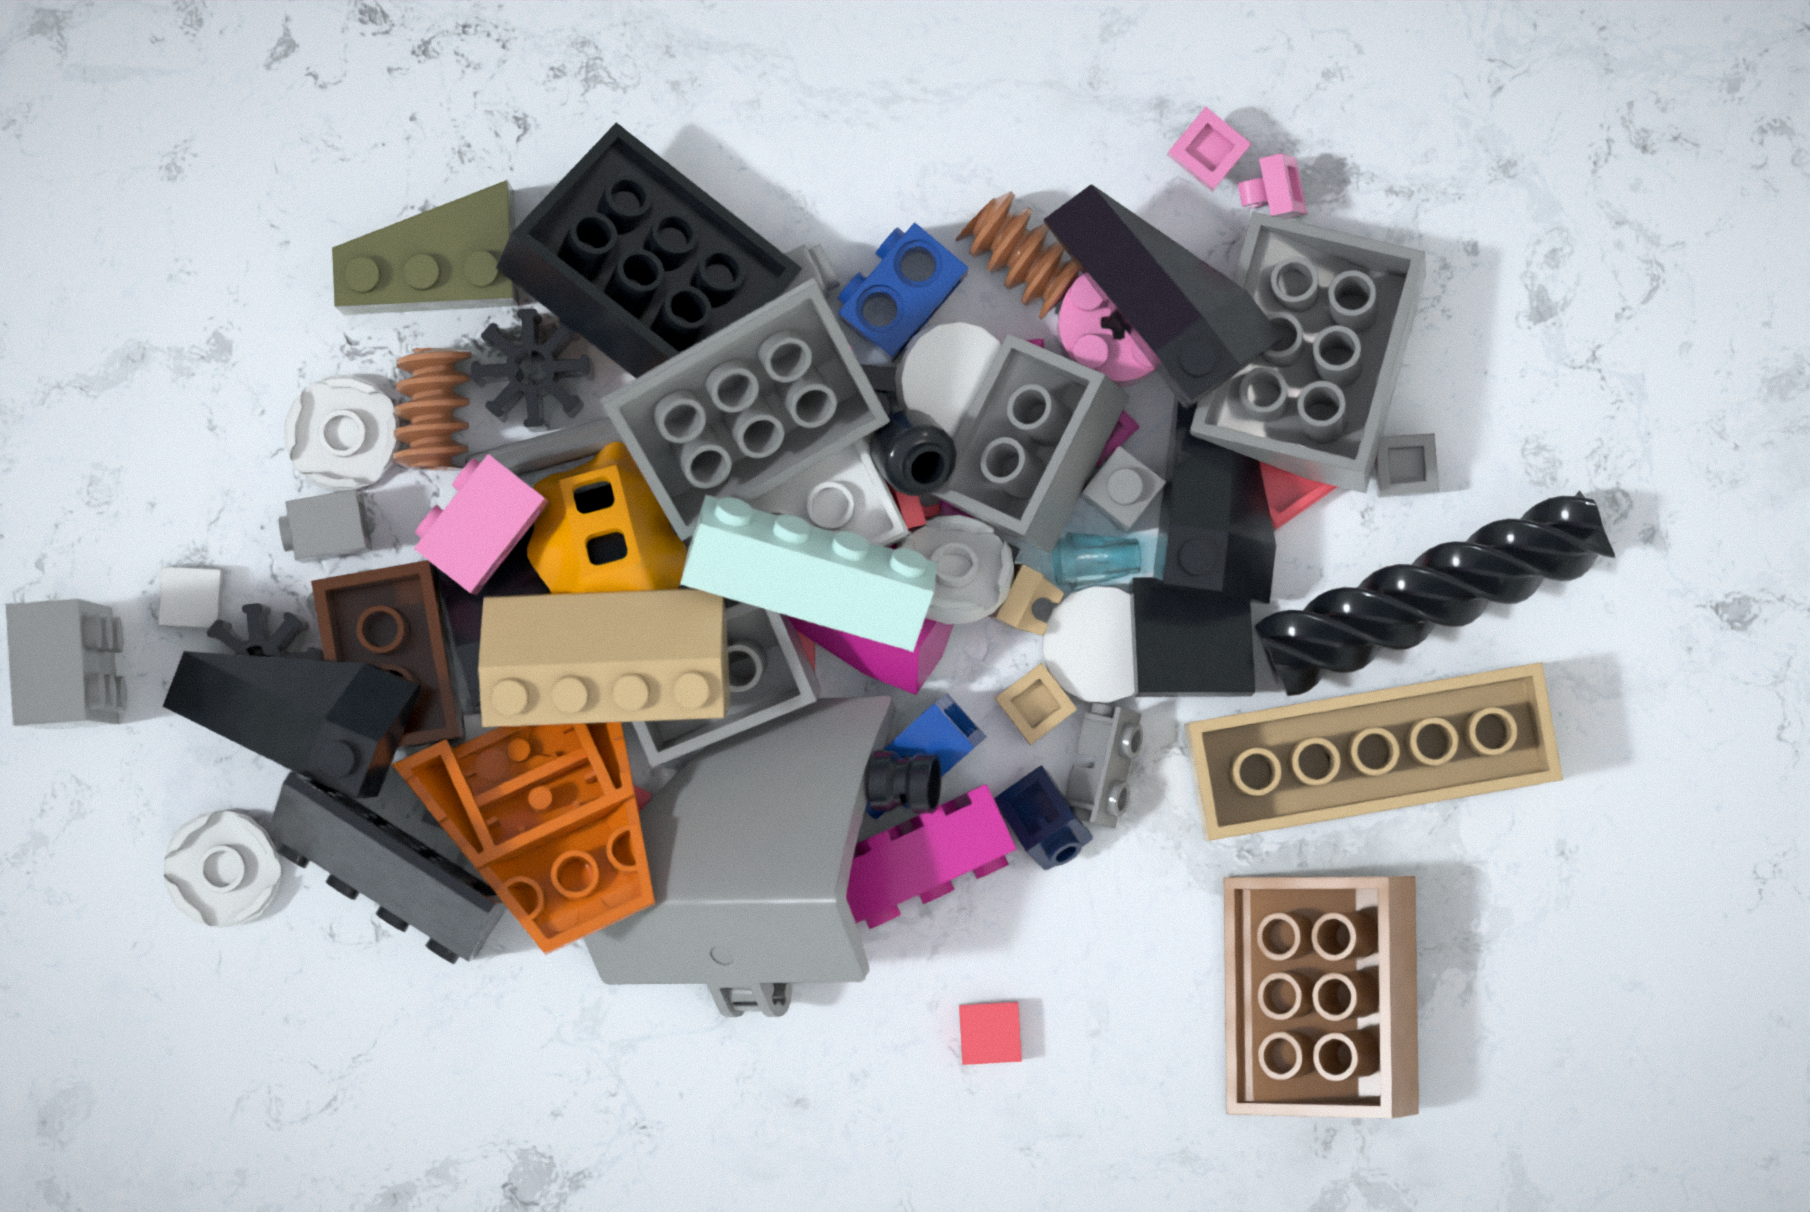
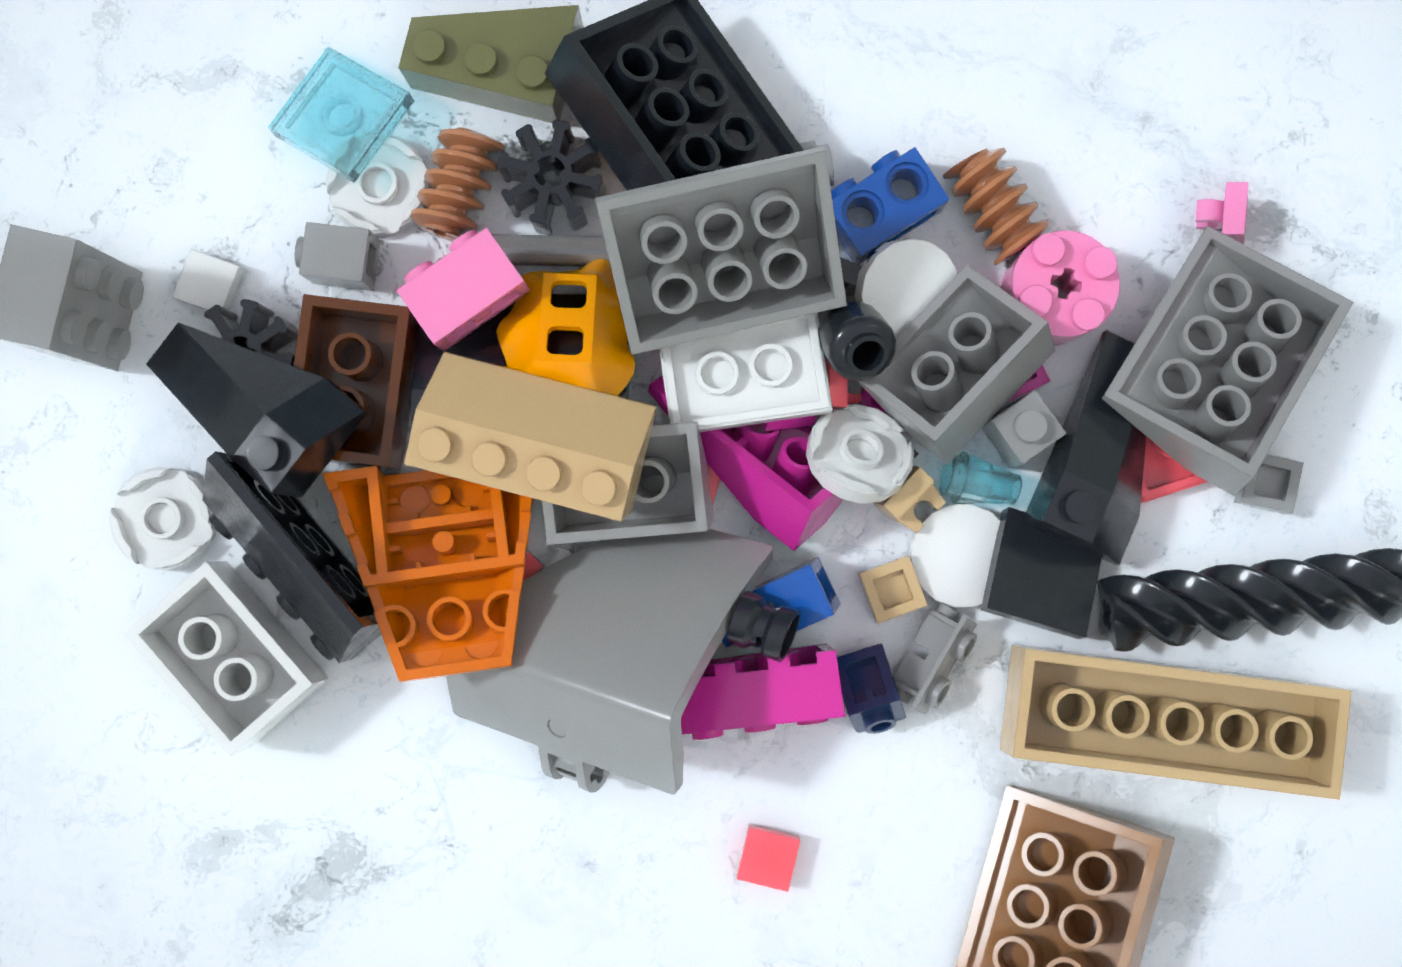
camera: 20 degrees right, 0 degrees up
(281, 370) = (341, 114): none -> clear light blue tile
(345, 992) = (226, 656): none -> white brick
(810, 572) = (737, 415): light aqua brick -> none
(1170, 302) = (1120, 279): black wedge -> none
(1209, 149) = (1182, 163): bright pink tile -> none

